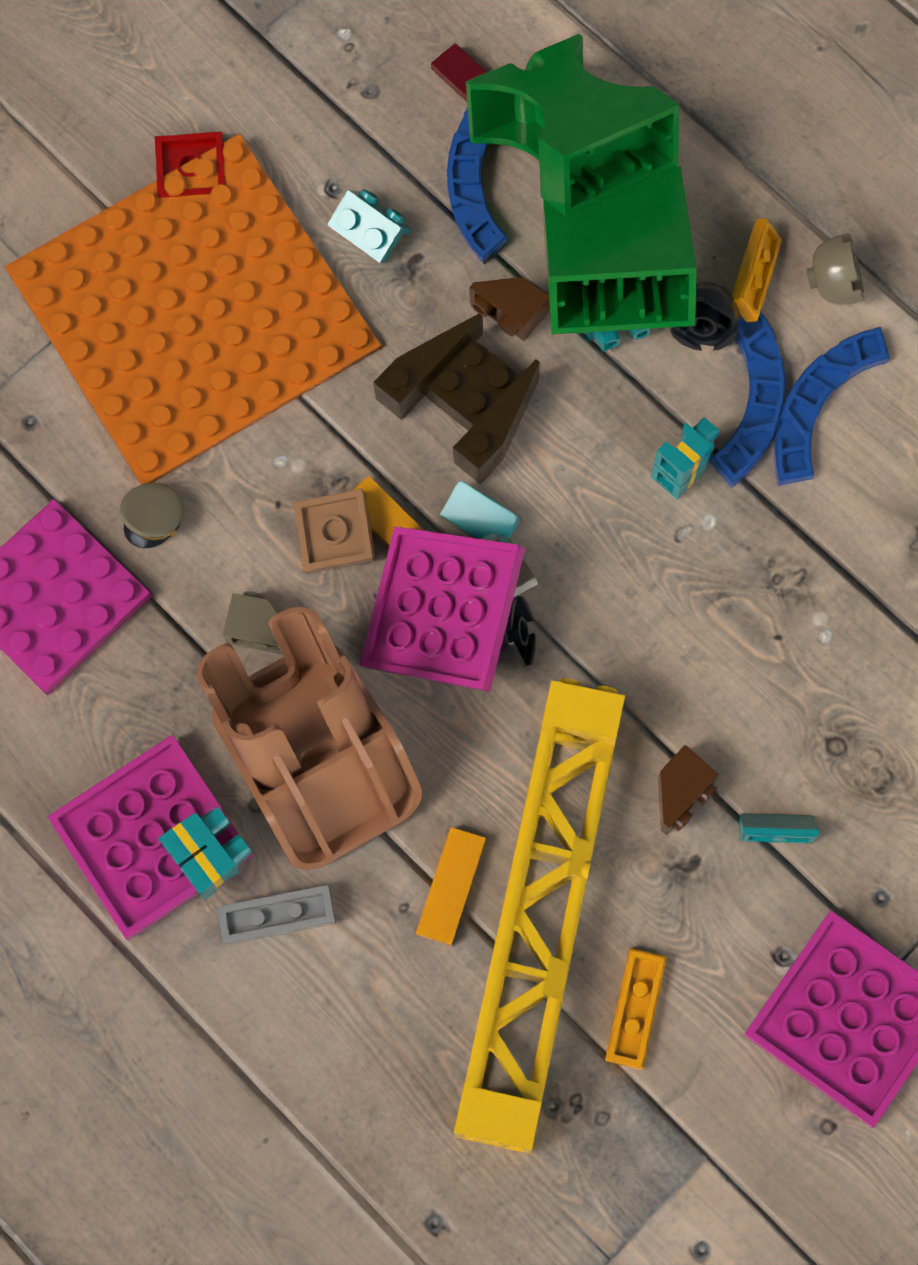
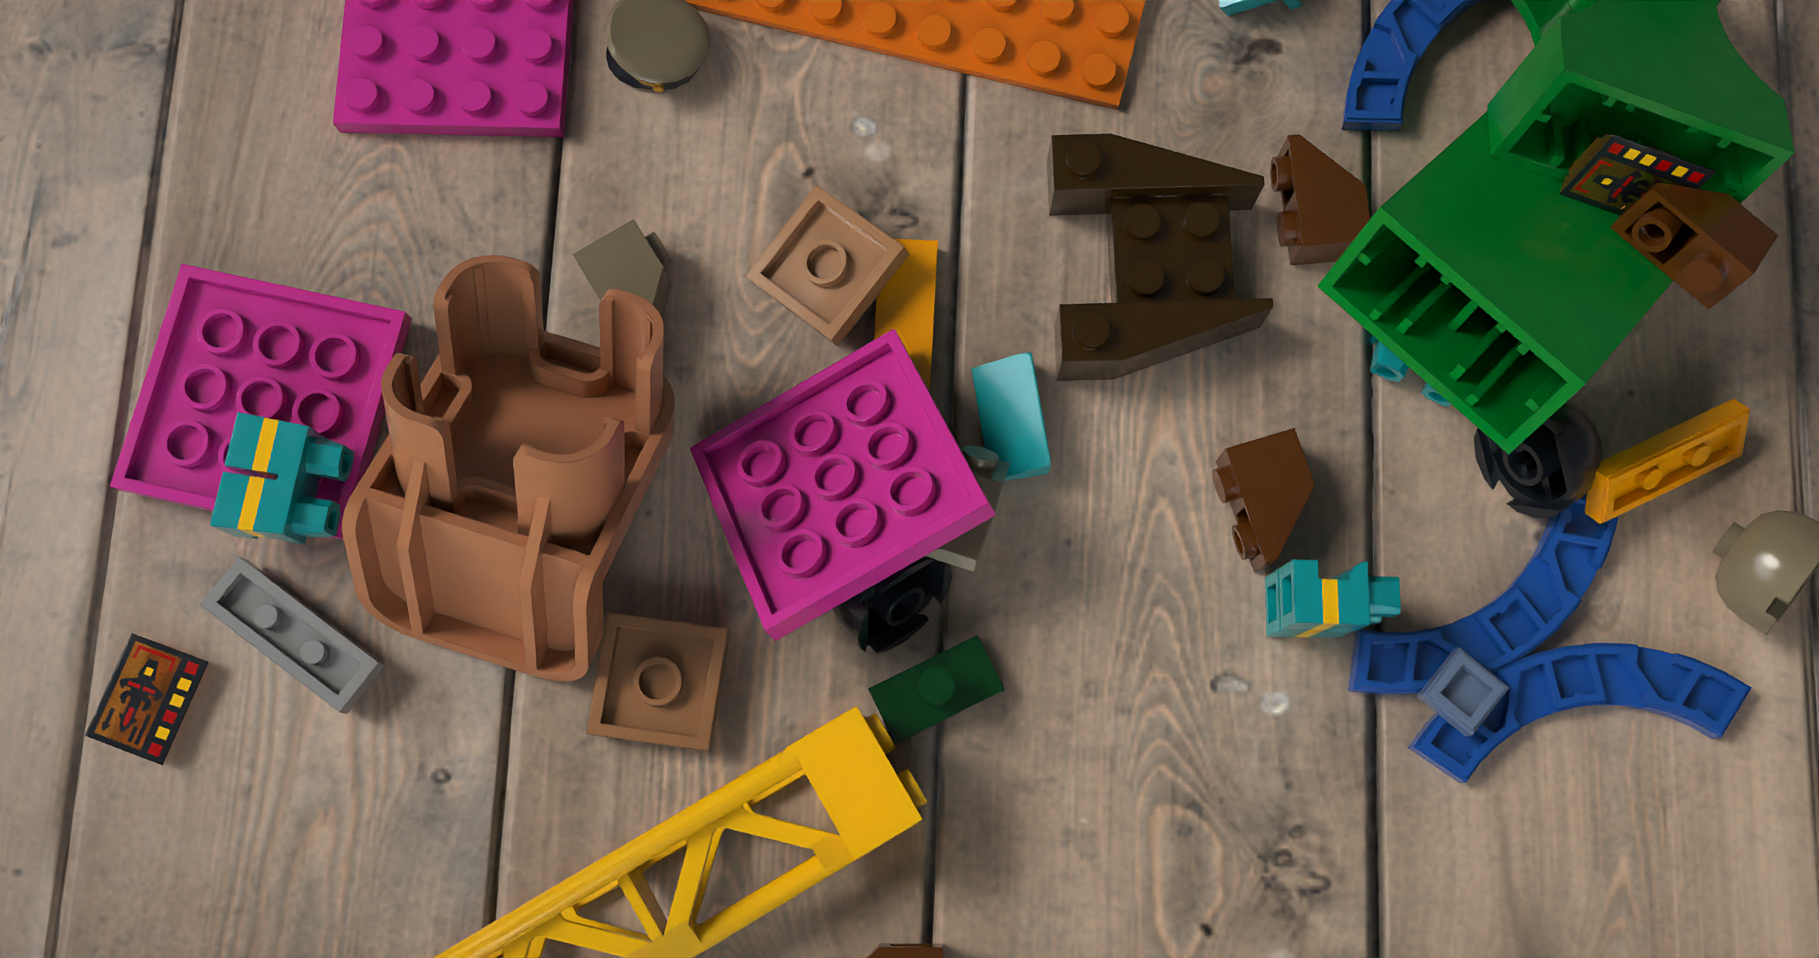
camera: 45 degrees right, 5 degrees up
(242, 1009) = (146, 698): none -> piece
(451, 886) = (511, 811): light orange tile -> none
(455, 770) = (658, 682): none -> medium nougat plate
(570, 651) = (936, 689): none -> dark green tile
(615, 440) = (1267, 490): none -> reddish brown slope
(629, 173) = (1619, 172): none -> piece
(677, 171) = (1697, 238): none -> reddish brown slope
(775, 440) = (1462, 692): none -> sand blue tile

